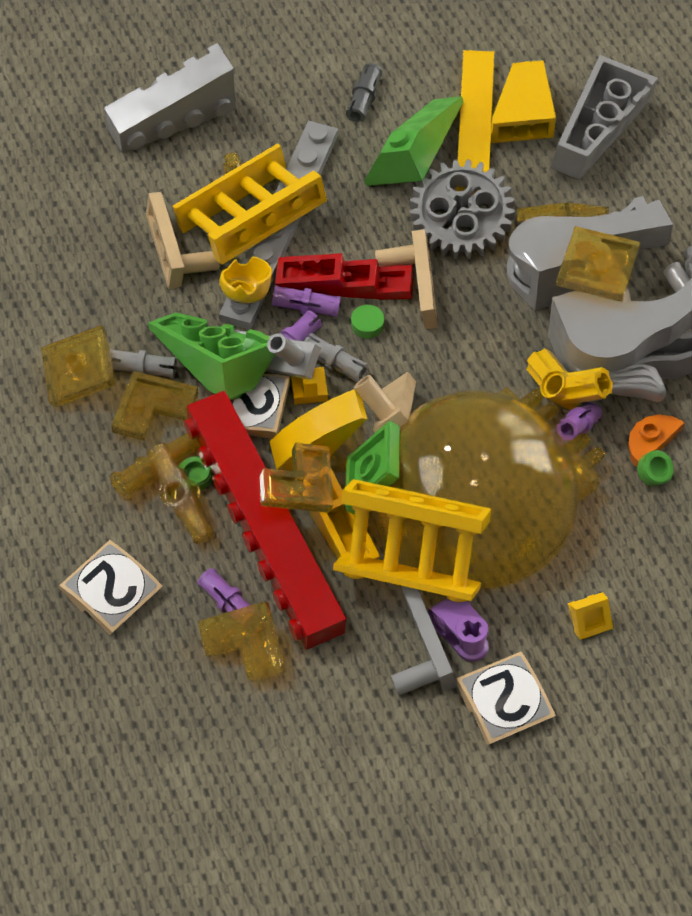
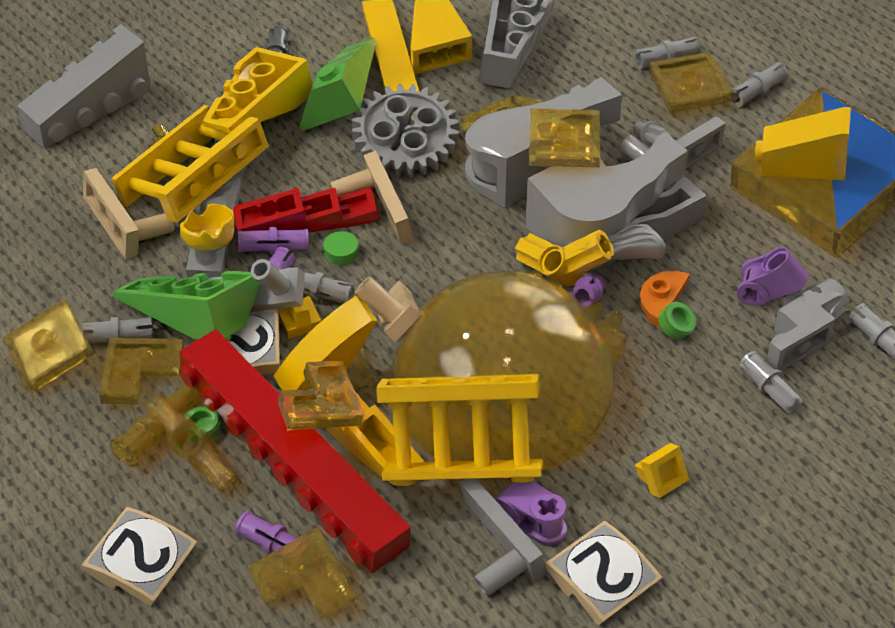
camera: 15 degrees left, 10 degrees down
(336, 137) = (261, 88): none -> yellow wedge
(376, 459) = (397, 357): bright green tile -> none

